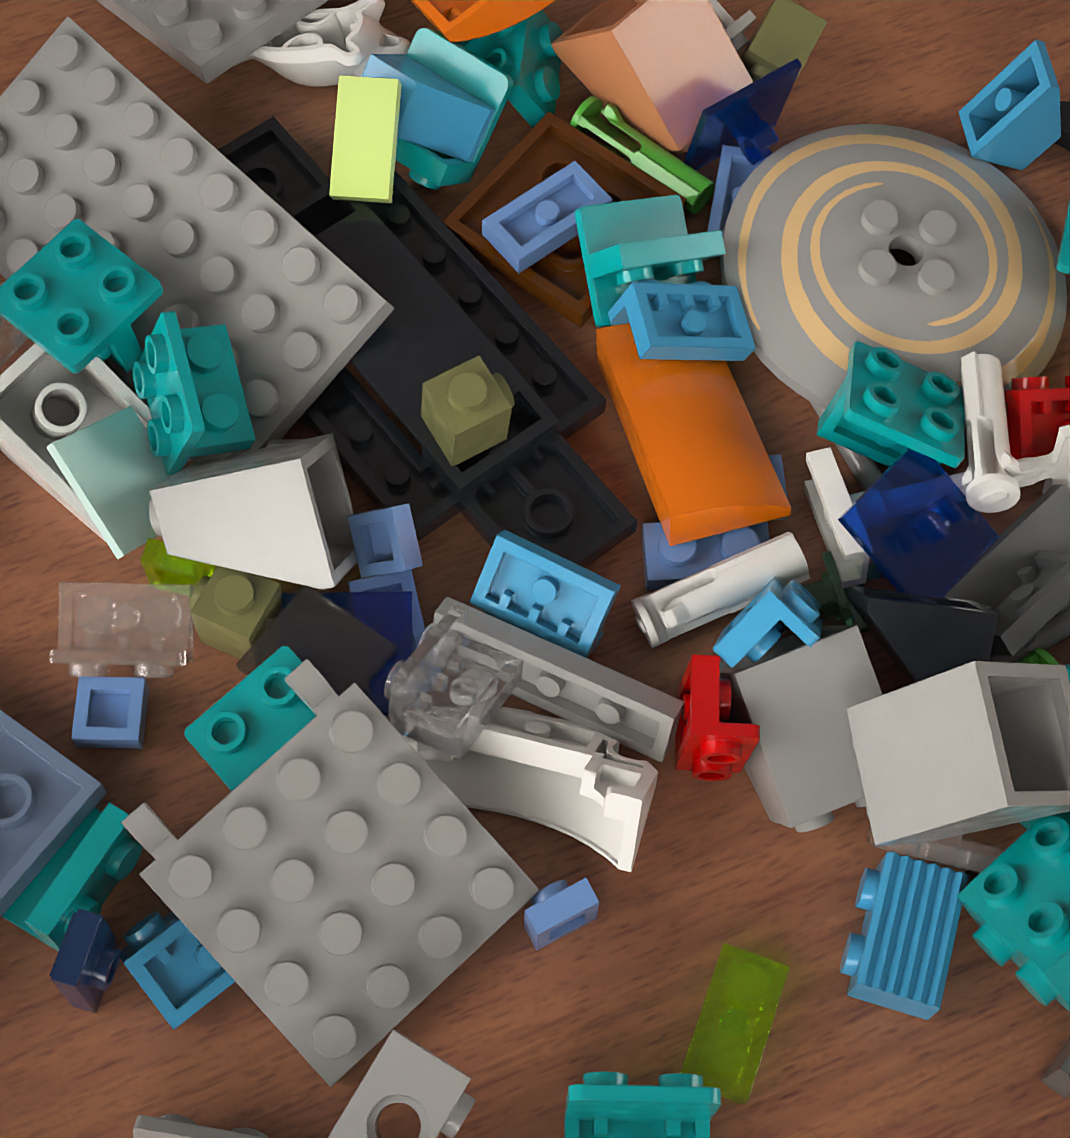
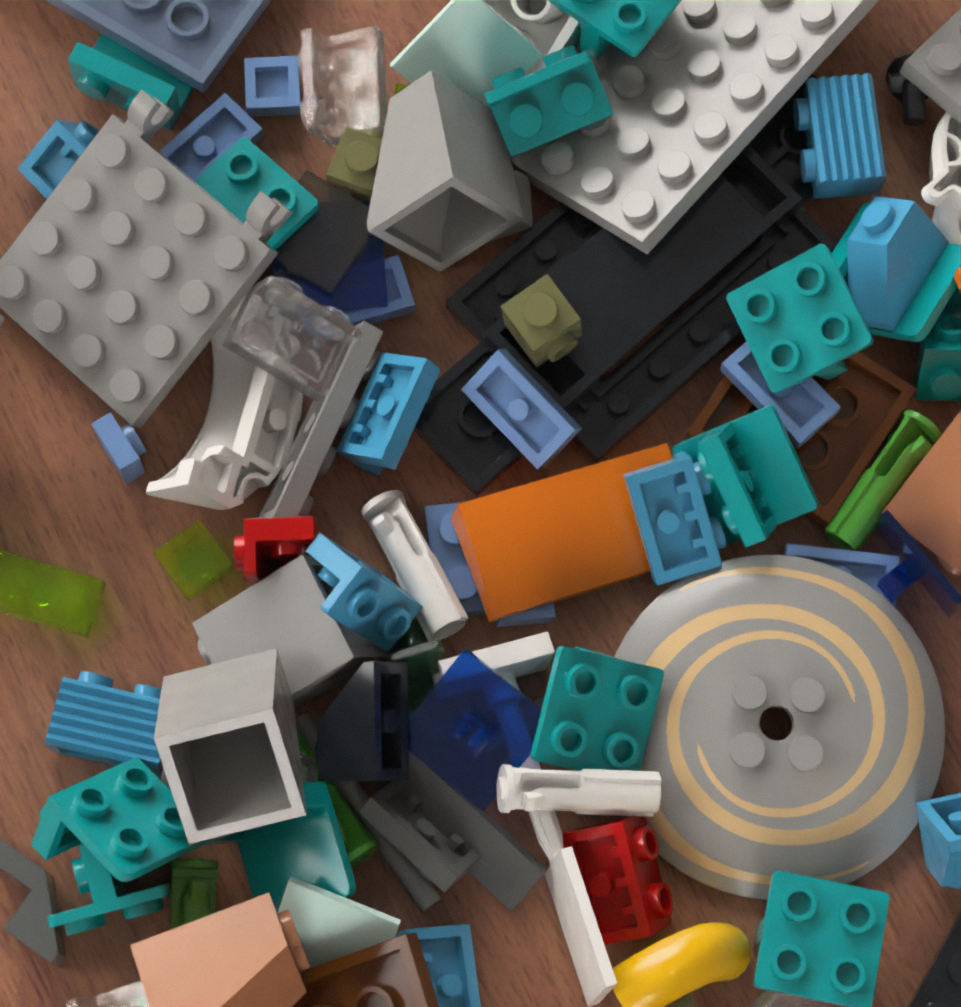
camera: 85 degrees right, 10 degrees up
(86, 960) = (54, 91): dark blue plate -> none
(170, 780) = (211, 136): none -> medium blue plate
(216, 95) = (905, 91): none -> black plate
(276, 131) = (841, 136): none -> dark azure brick
(365, 139) = (825, 209): yellowish green tile -> none
(385, 540) = (436, 279): medium blue plate -> none
(484, 173) = (800, 320): none -> teal bracket
(553, 457) = (521, 408): none -> medium blue plate
(703, 834) = (193, 560): none -> clear neon green plate

